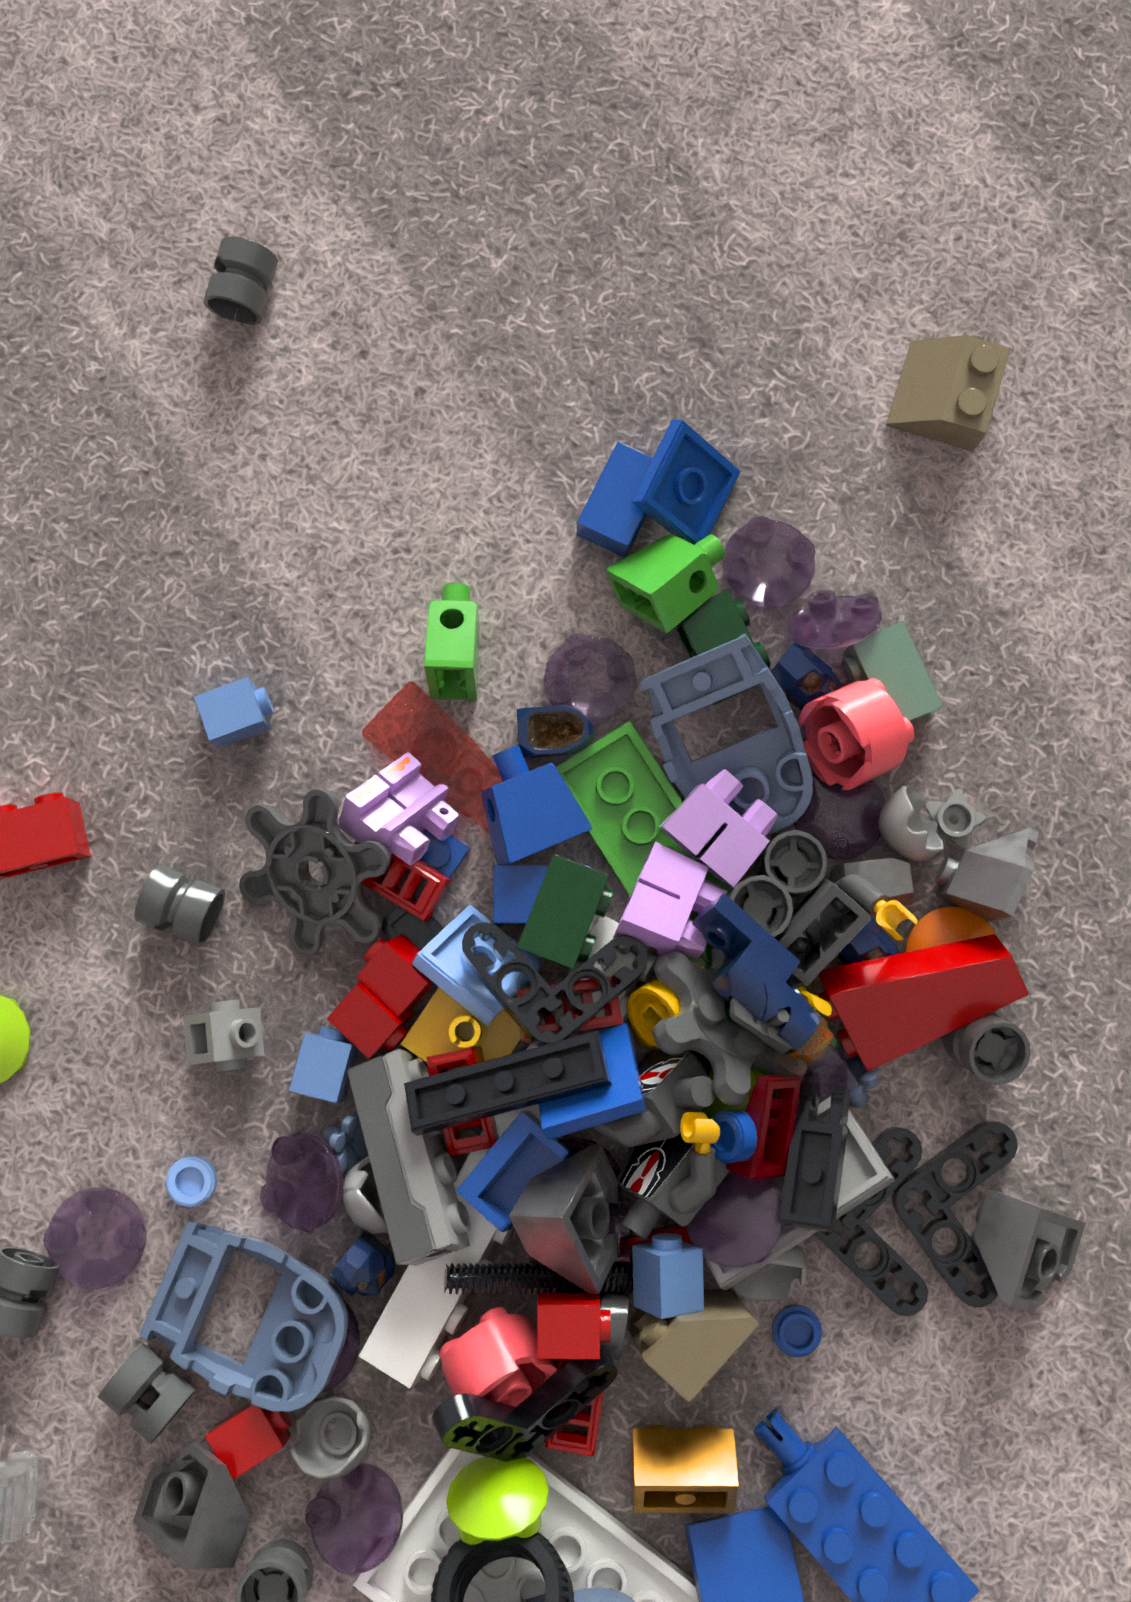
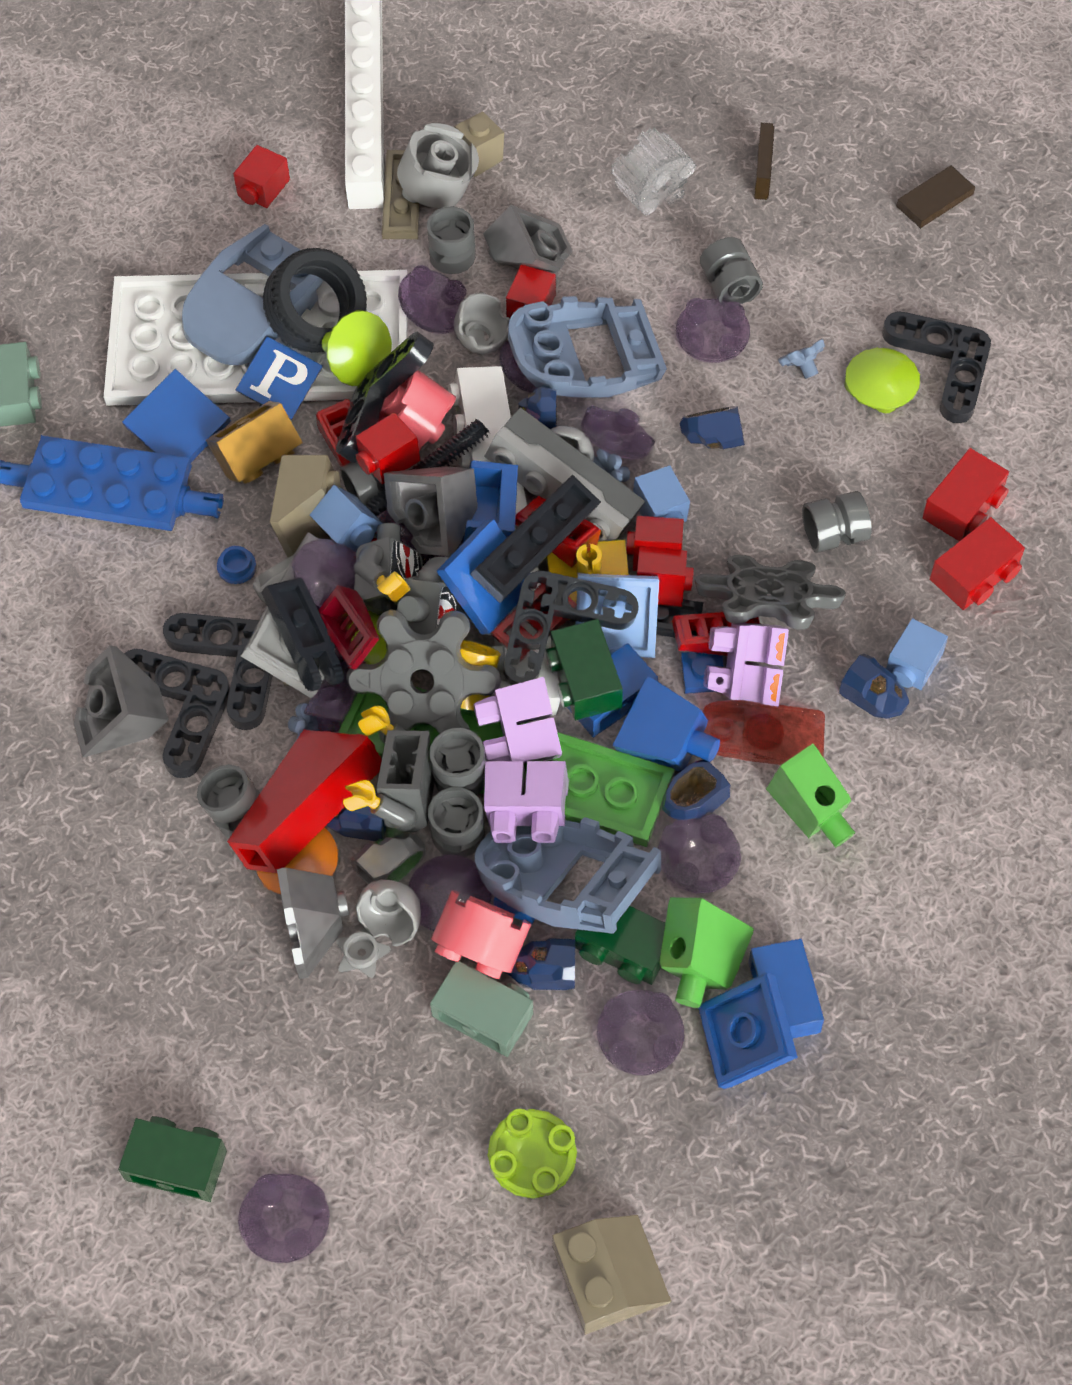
camera: 145 degrees right, 20 degrees down
(37, 1125) = (804, 358): none -> sand blue plant
(90, 757) = (977, 564): none -> red brick
(131, 1383) = (609, 276): dark grey wheel -> none
(191, 1181) = (685, 394): light blue tile -> none
(200, 1112) = (714, 428): none -> dark blue rock
(224, 1035) = (737, 471): light grey brick -> none
(299, 713) = (874, 688): none -> dark blue rock
(600, 1536) = (279, 376): none -> blue piece
(737, 1136) = (368, 601): blue tile -> none
(756, 983) = (420, 691): dark blue plate -> none
(835, 620) = (557, 1014): clear purple dish -> none
(937, 531) = (532, 1153): none -> lime dish

